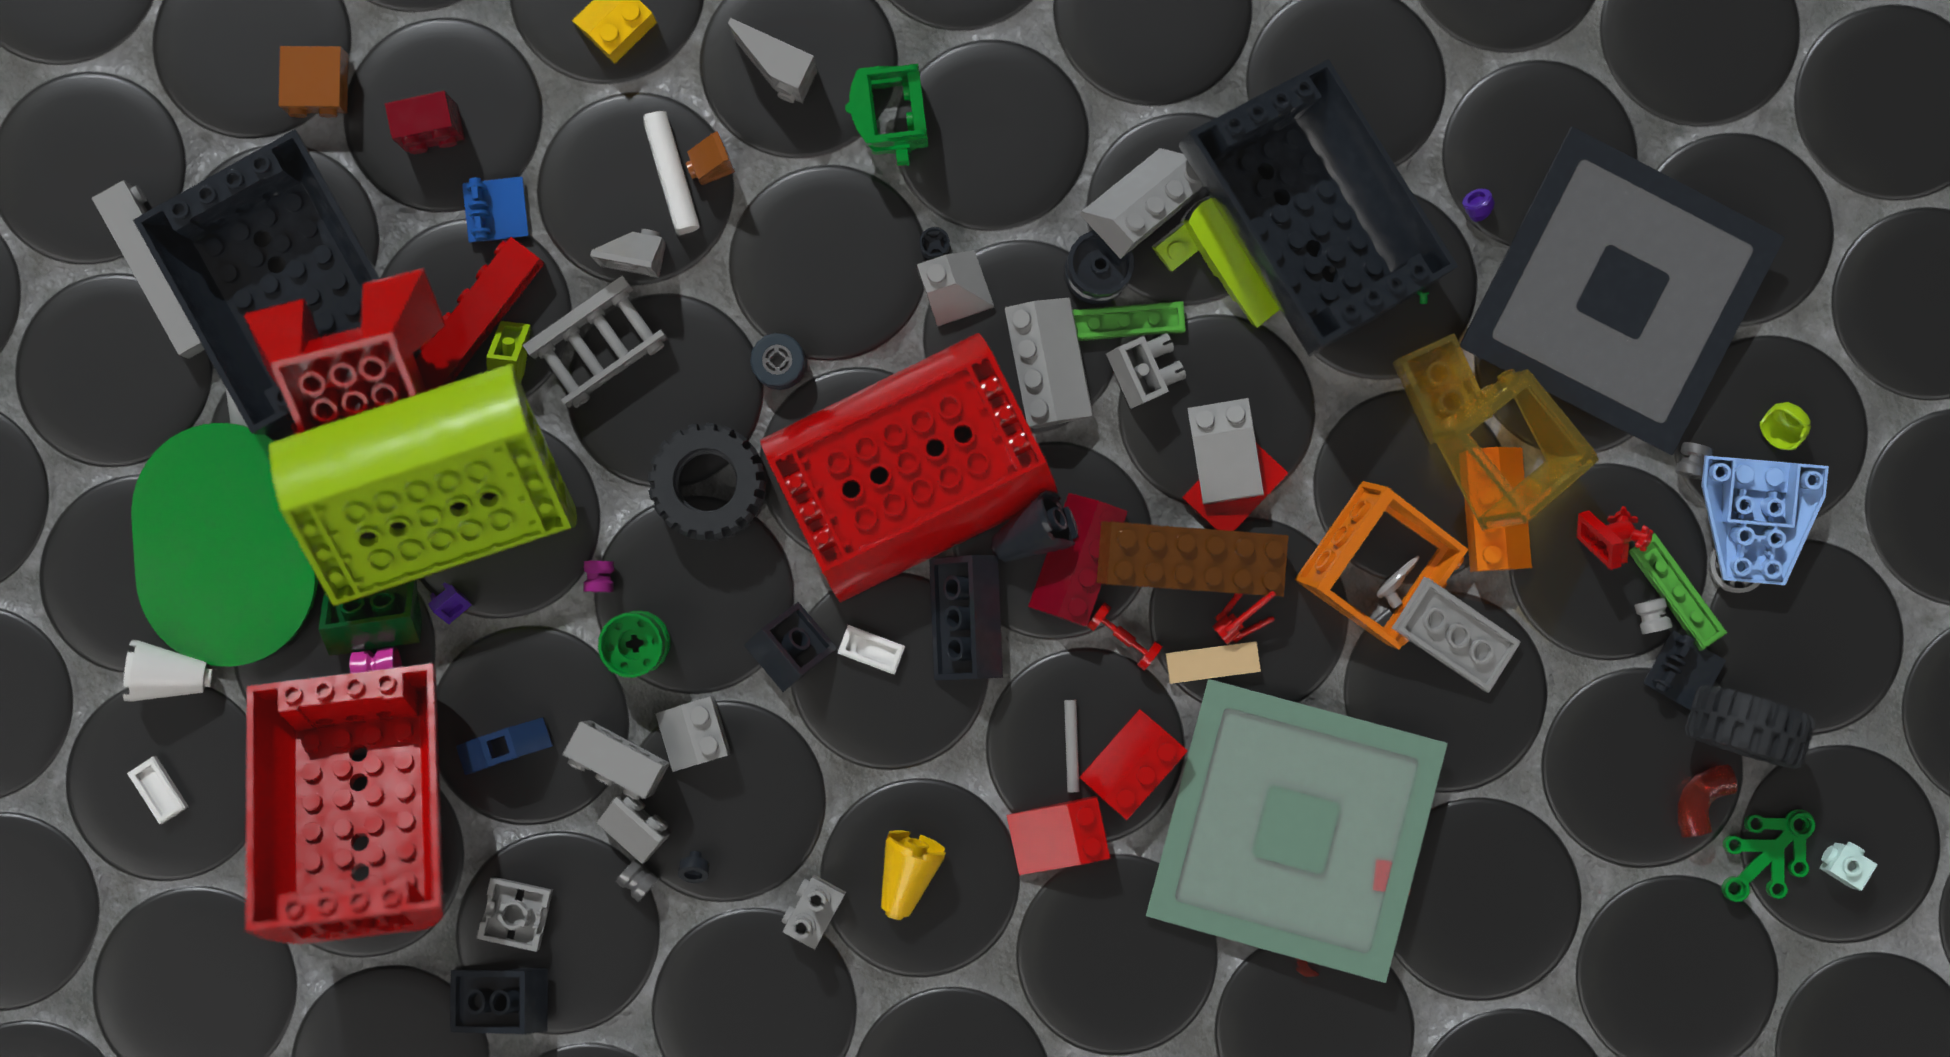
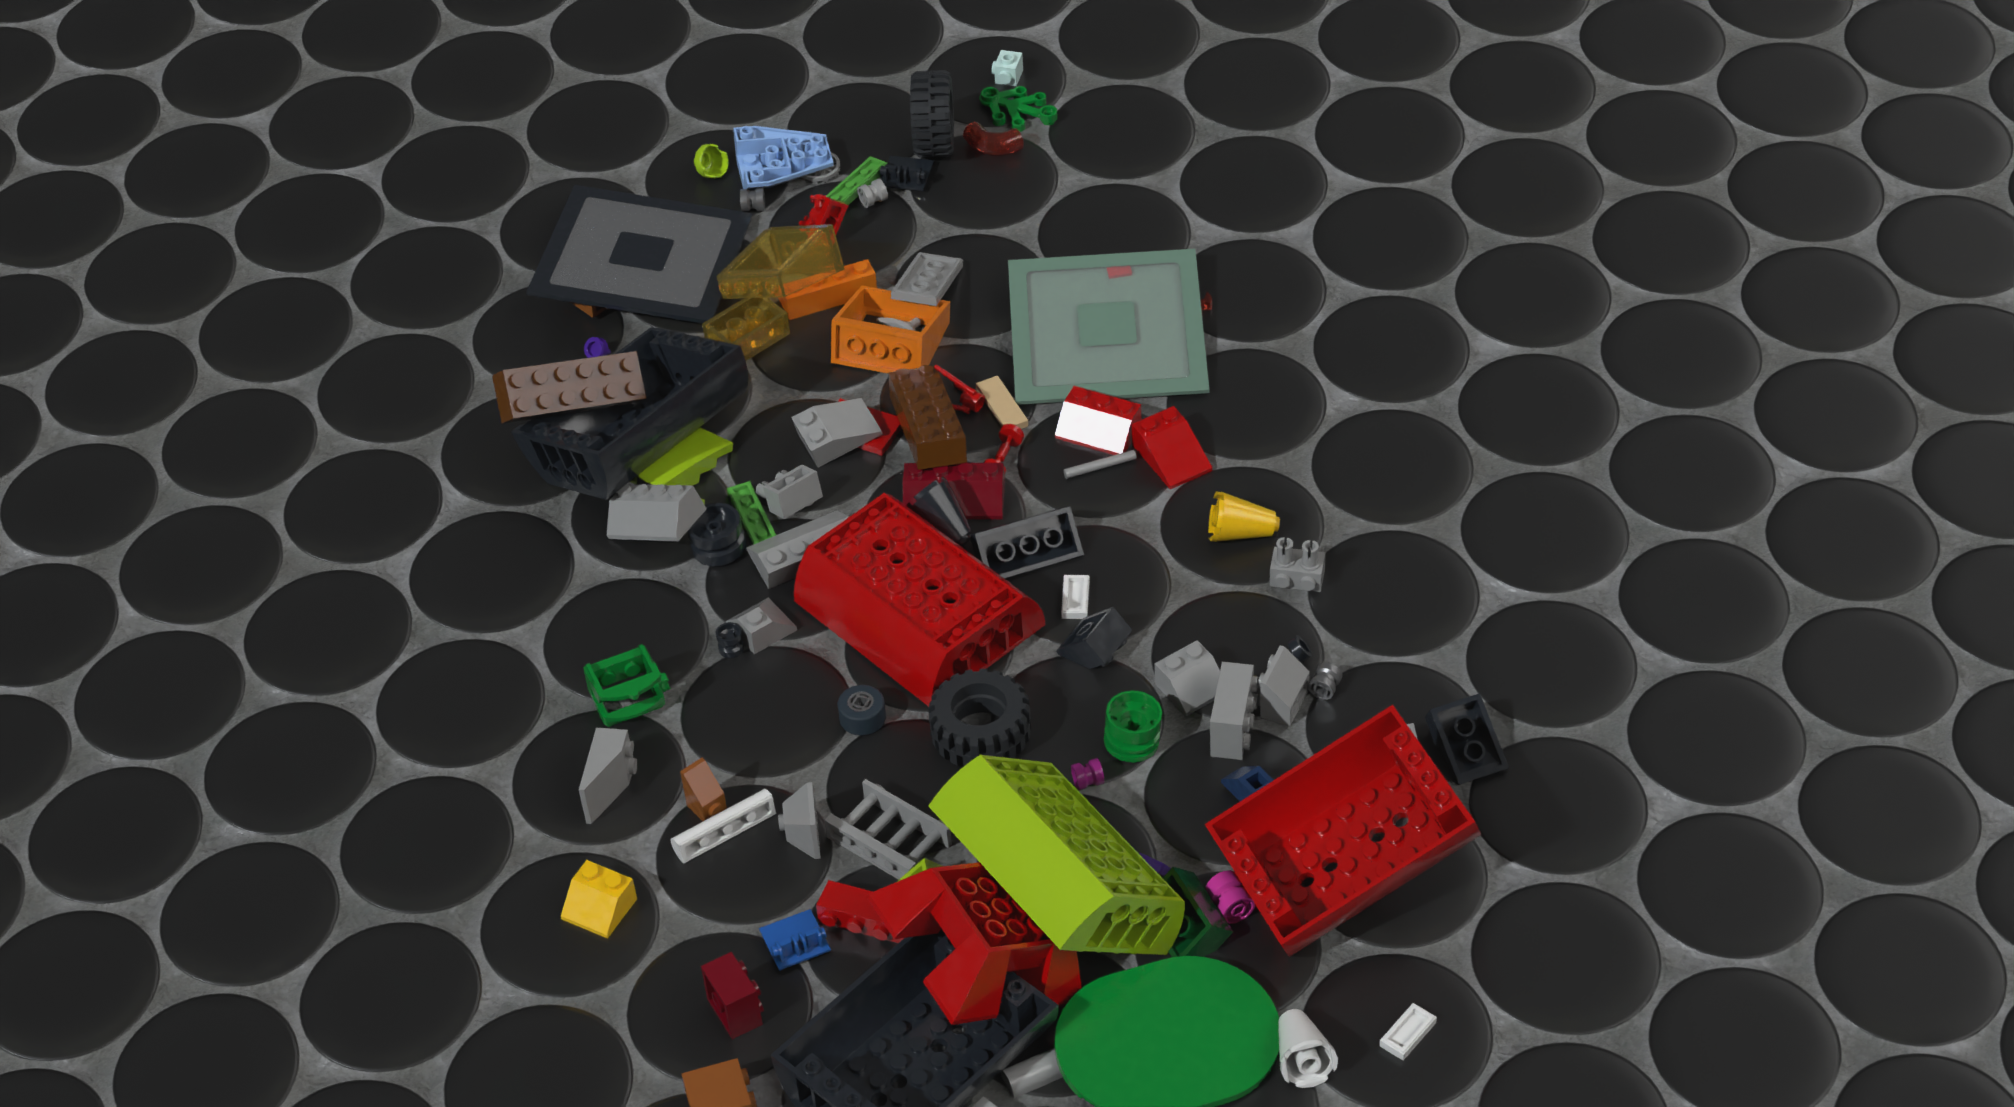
camera: 105 degrees left, 40 degrees down
(1366, 138) = (568, 387): none -> brick

